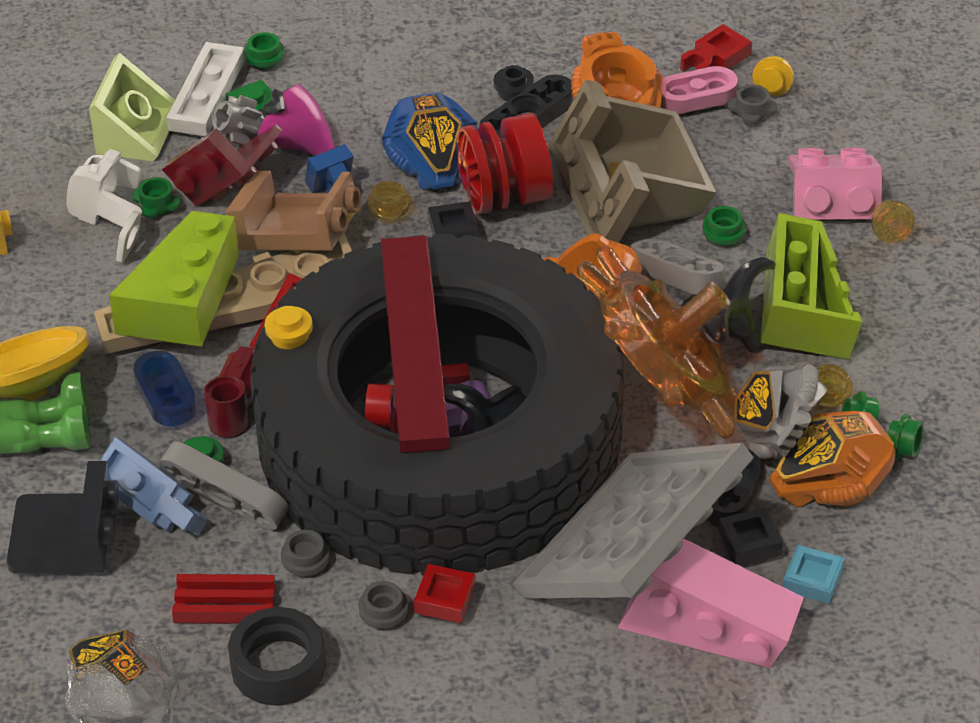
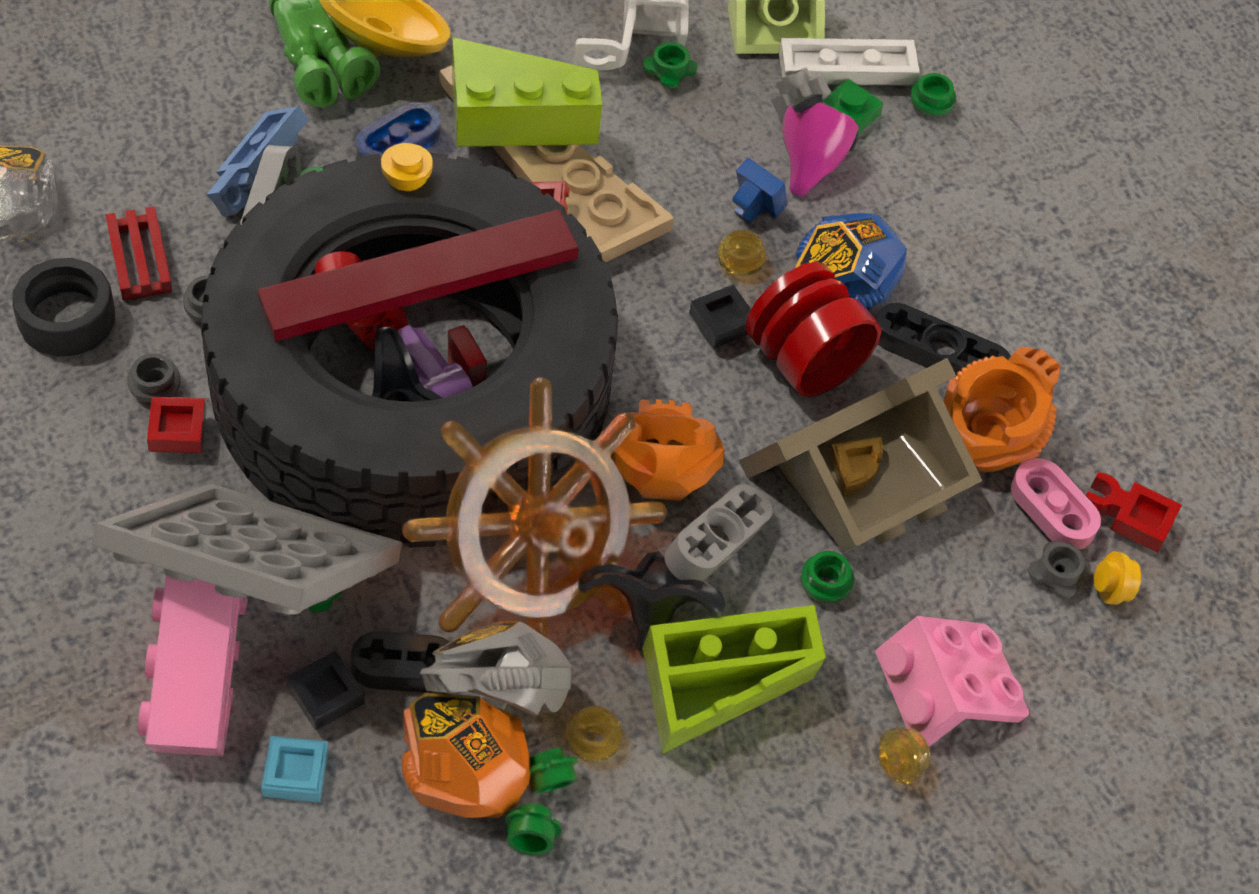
camera: 65 degrees right, 10 degrees up
(65, 529) = (192, 110): black bracket -> none
(214, 164) = (692, 75): dark red bracket -> none
(292, 219) = (667, 166): medium nougat panel -> none
(512, 81) = (988, 321): black plate -> none

